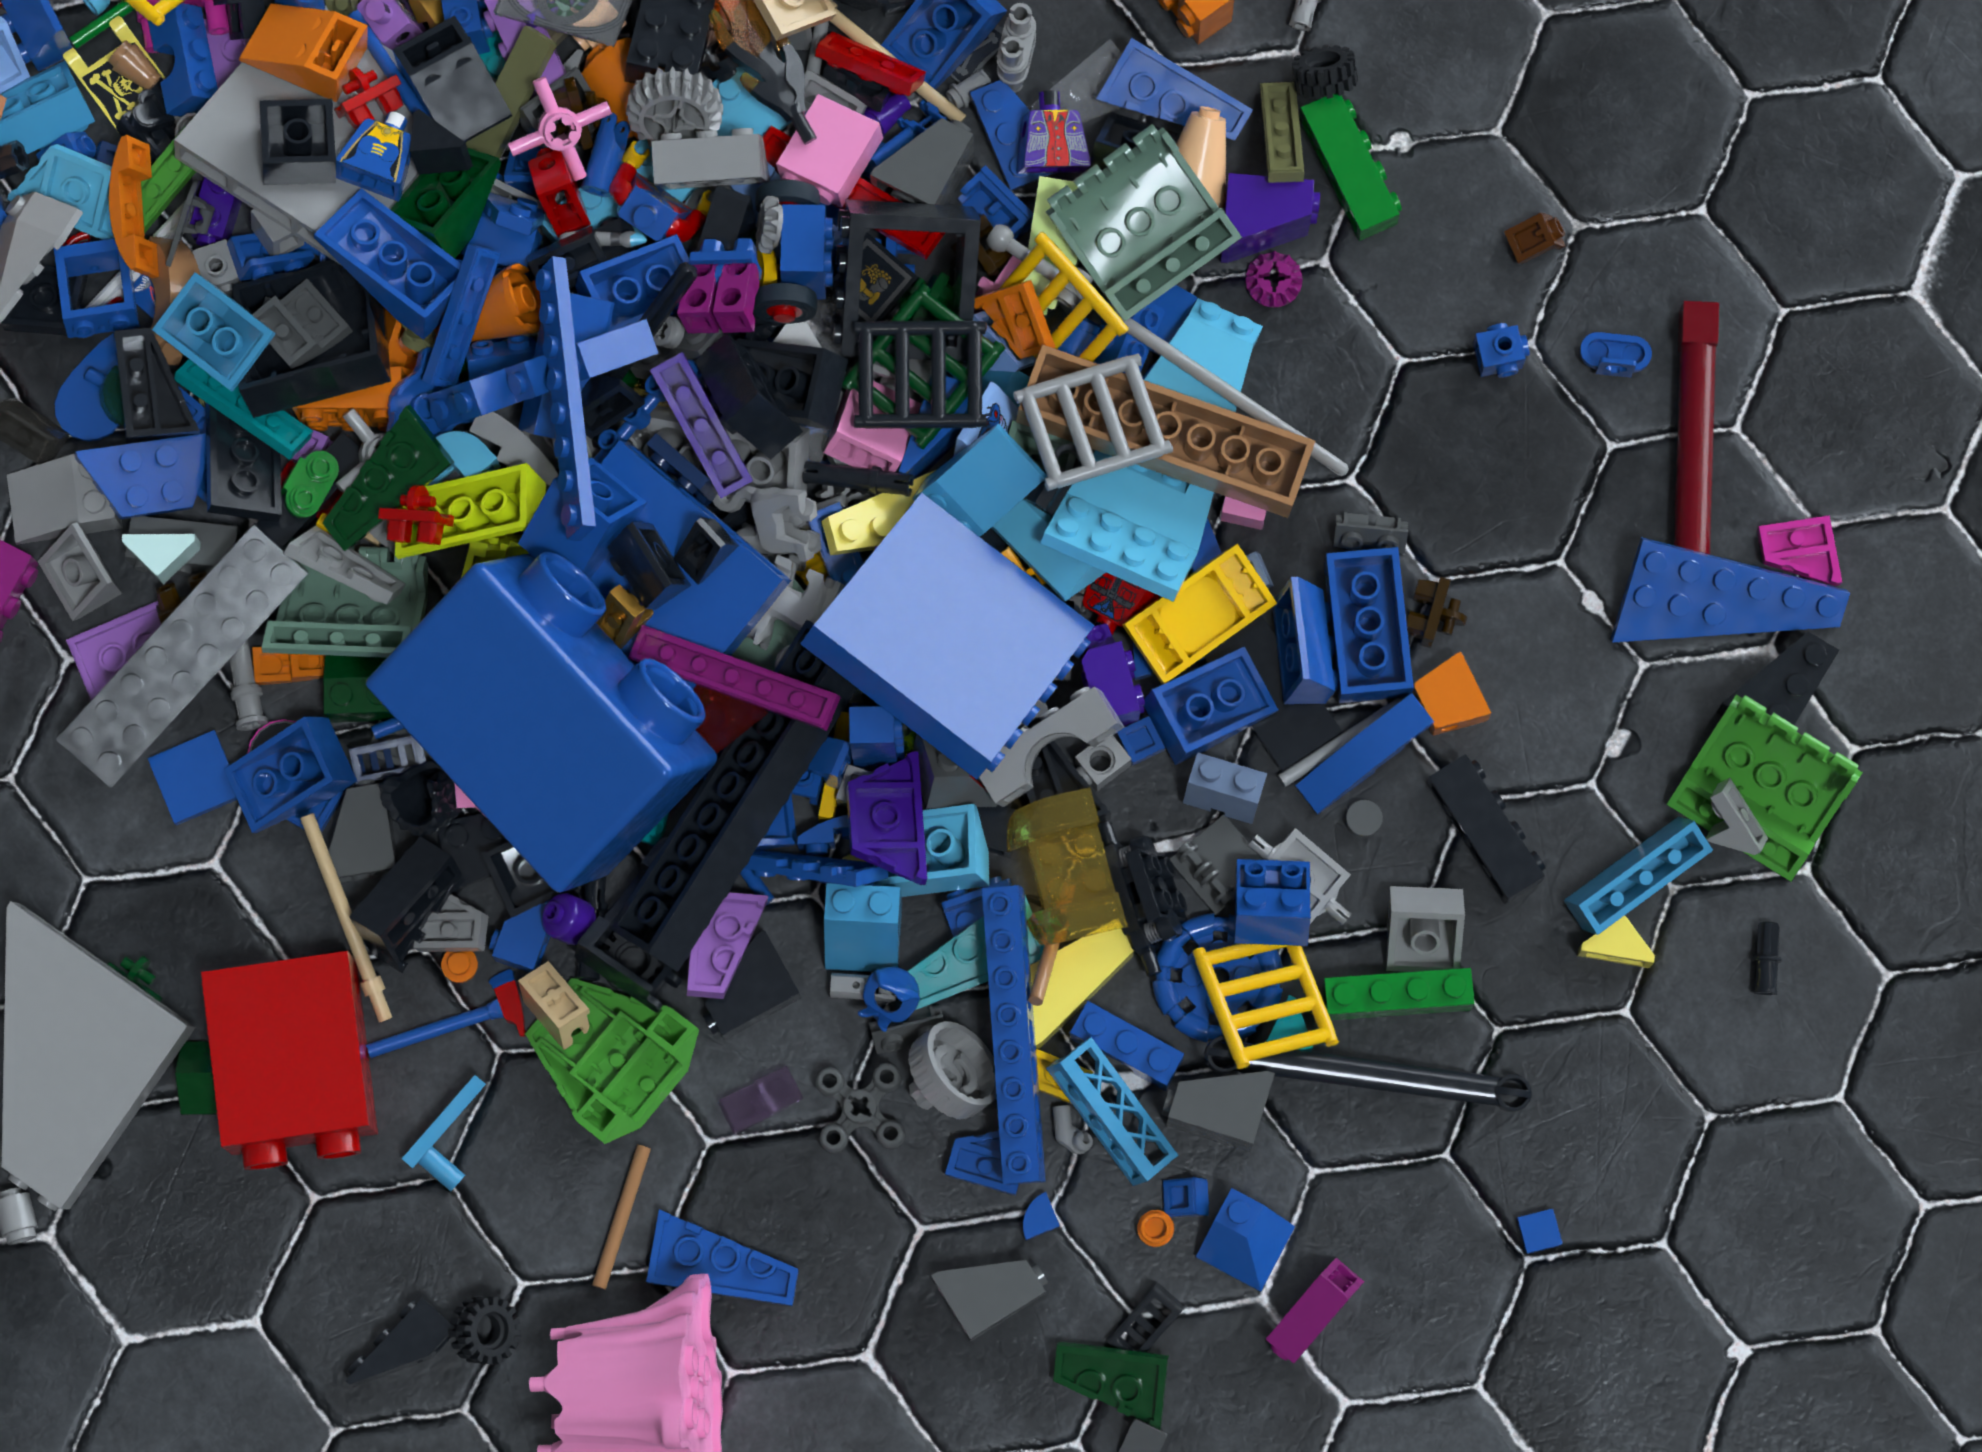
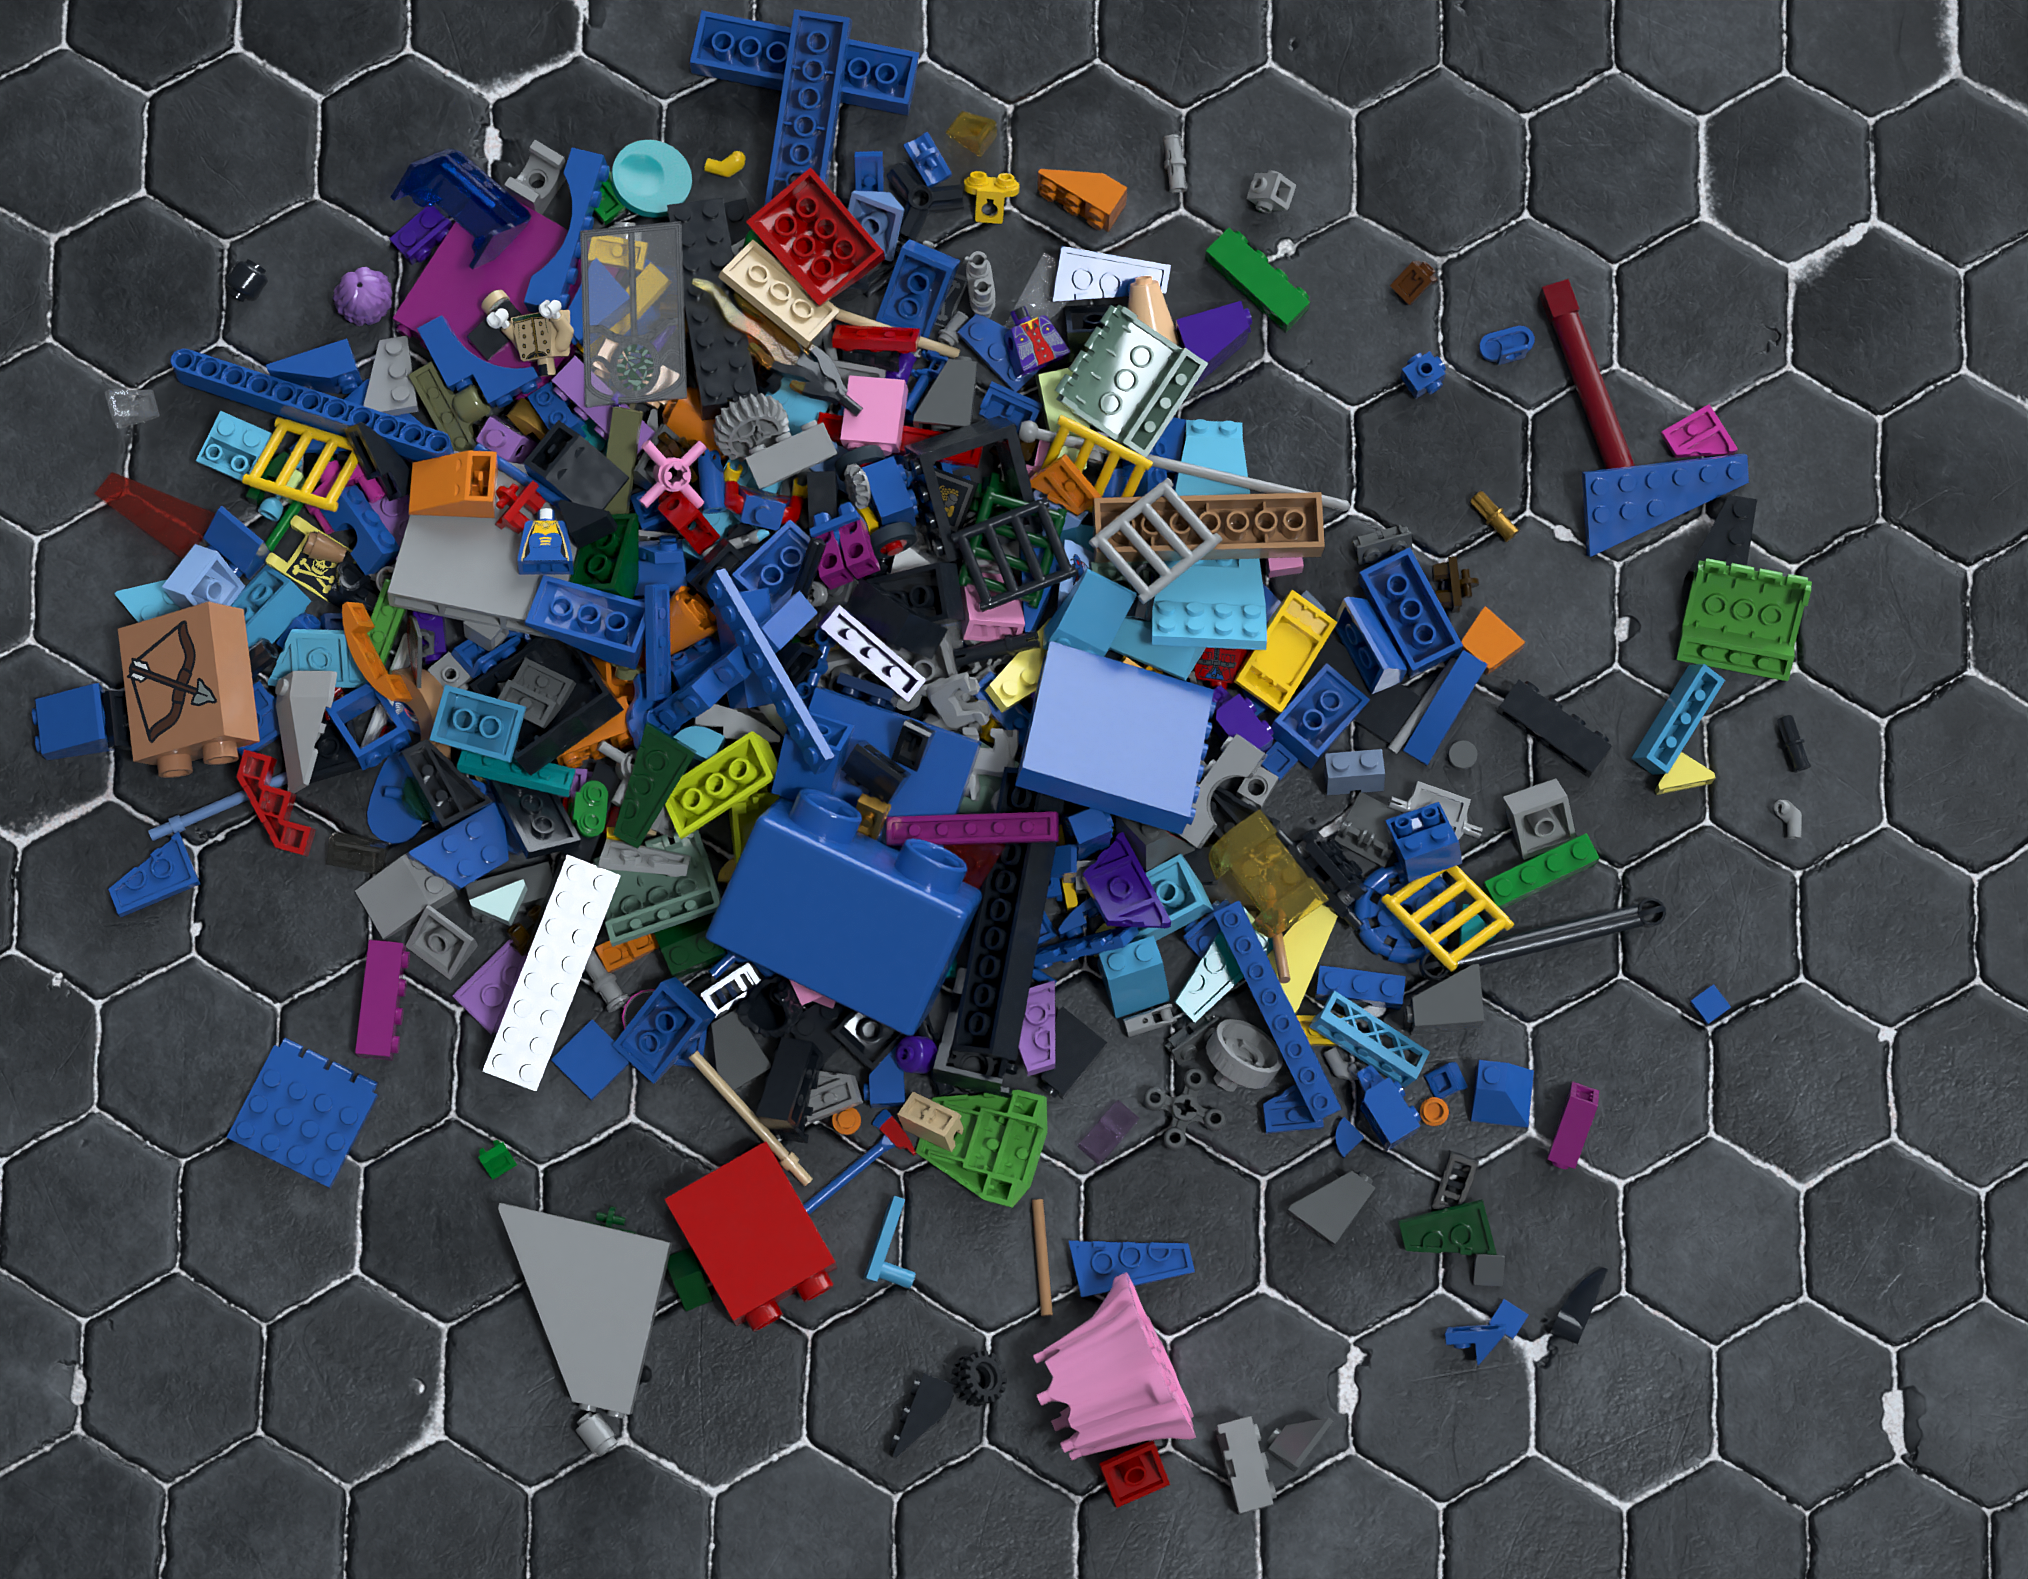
camera: 25 degrees left, 0 degrees up
(36, 850) = (497, 1160): none -> green tile
(297, 141) = (483, 558): black brick -> none
(429, 522) = (698, 802): red hips -> none
(898, 982) = (1174, 1006): blue piece -> none
(1096, 1202) = (1386, 1108): none -> blue hinge
(1262, 290) = (1230, 396): magenta gear -> none
(1281, 132) = (1200, 274): olive tile -> none
(1324, 72) = (1212, 217): black tyre -> none
(1407, 68) = (1271, 191): none -> light grey brick
(1517, 550) = (1494, 516): none -> pearl gold axle
(1728, 1043) = (1791, 816): none -> light grey arm
(1740, 827) = (1737, 655): light grey slope -> none

